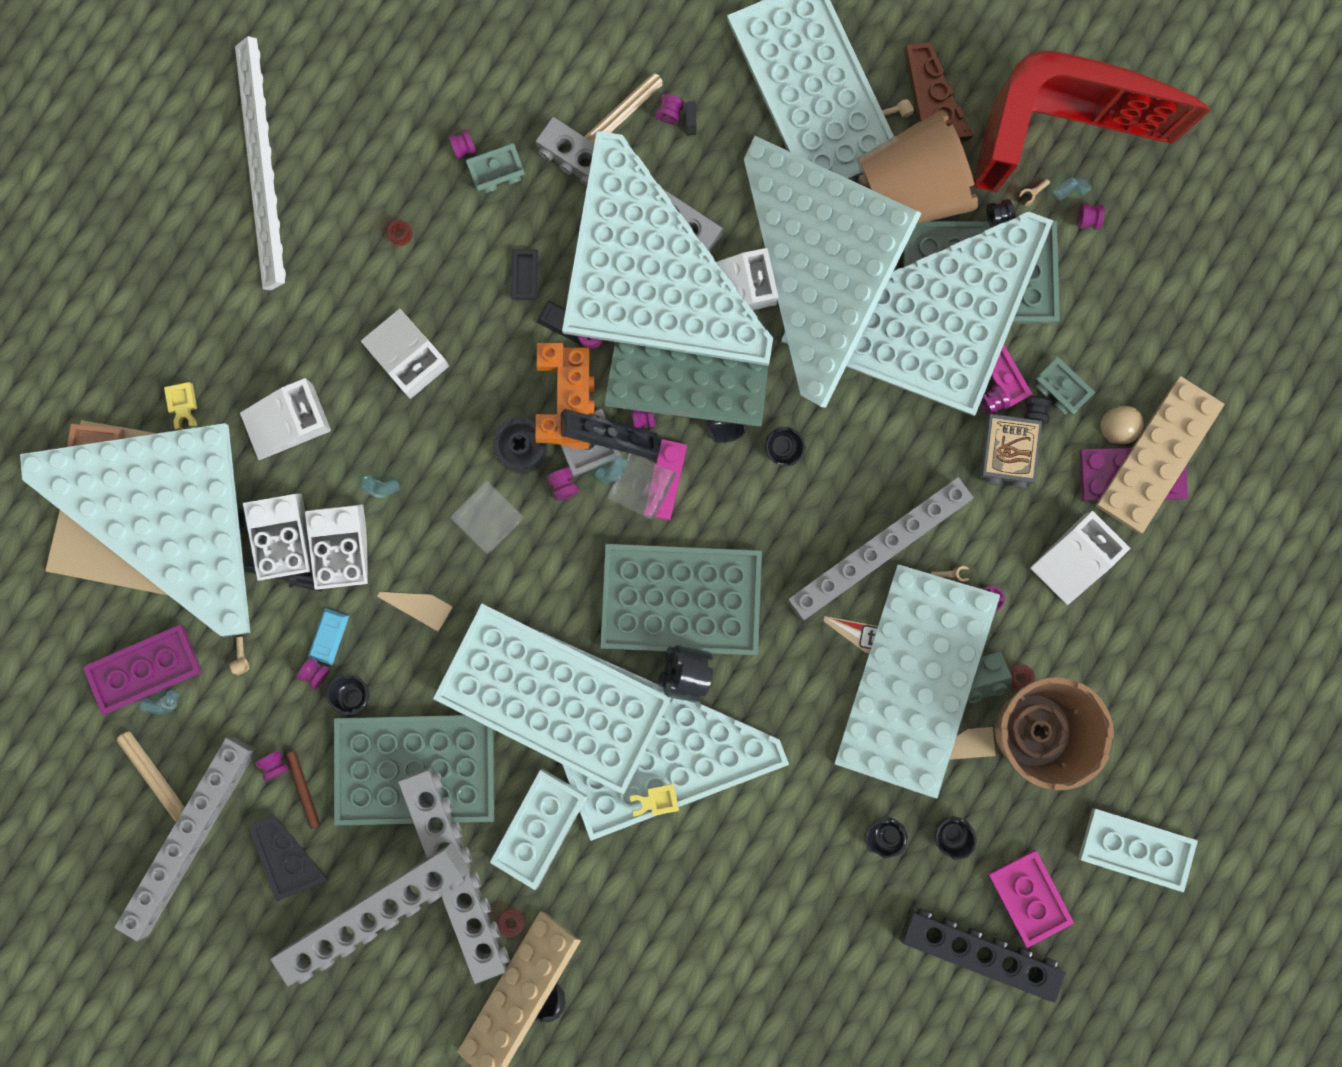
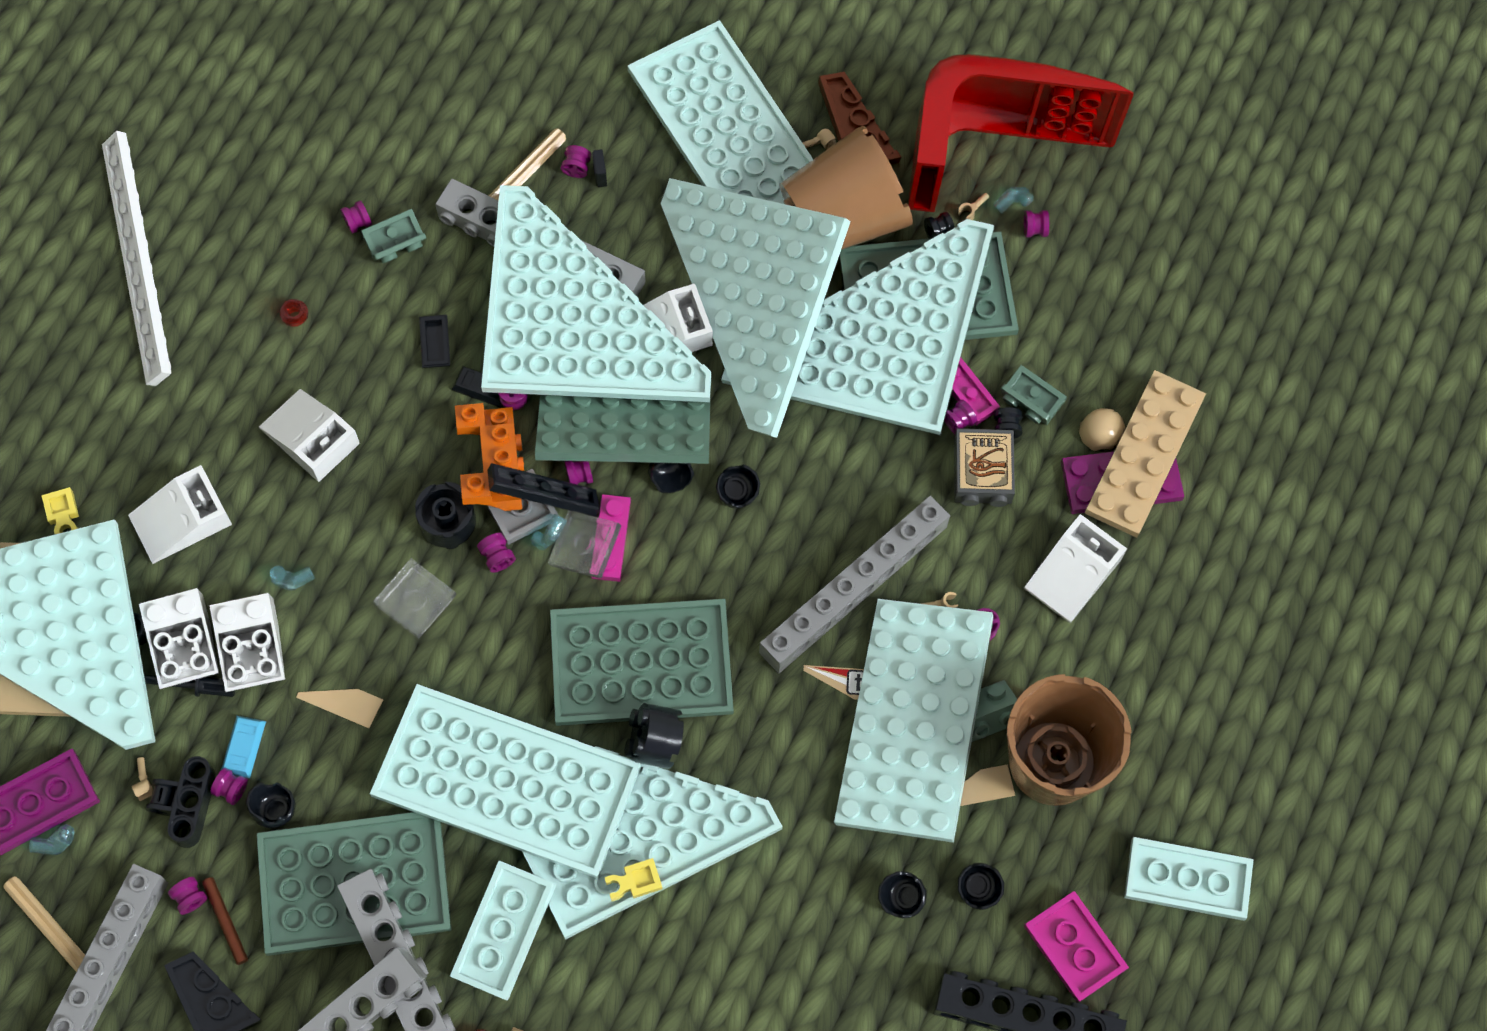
camera: 10 degrees left, 15 degrees down
(263, 680) = (171, 796): none -> black piece

